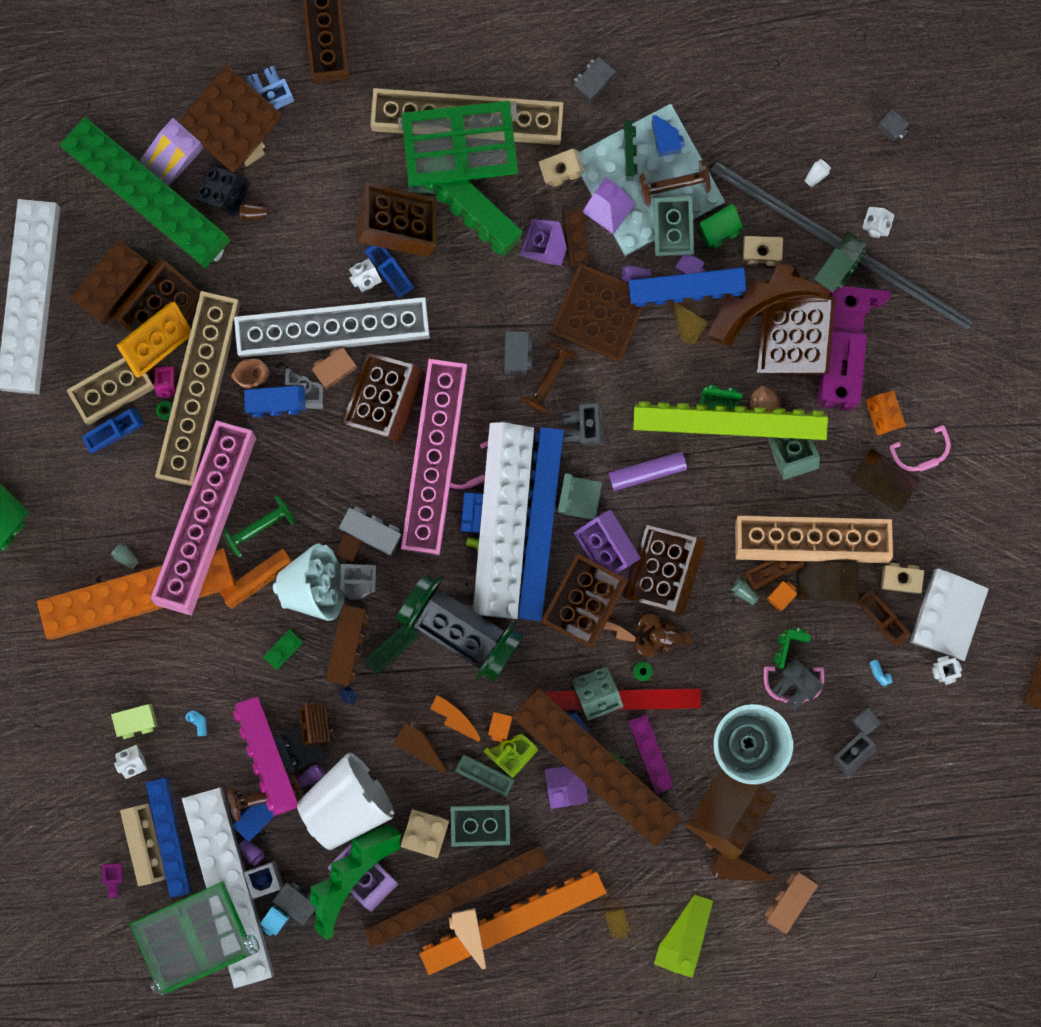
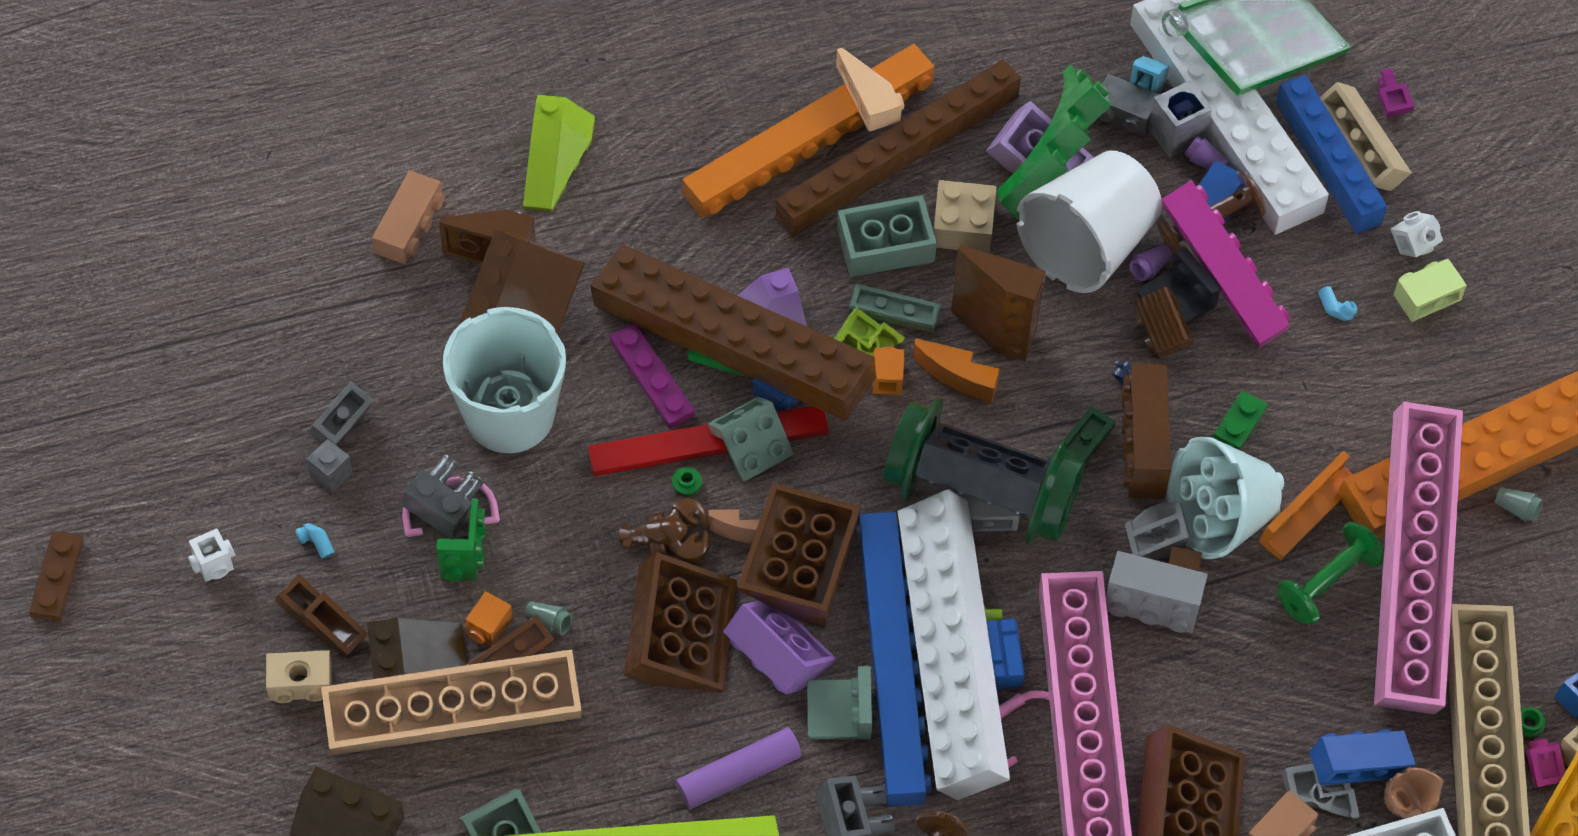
camera: 170 degrees right, 25 degrees down
(617, 923) = (658, 152): clear yellow brick -> none
(949, 614) = (217, 639): white slope -> none

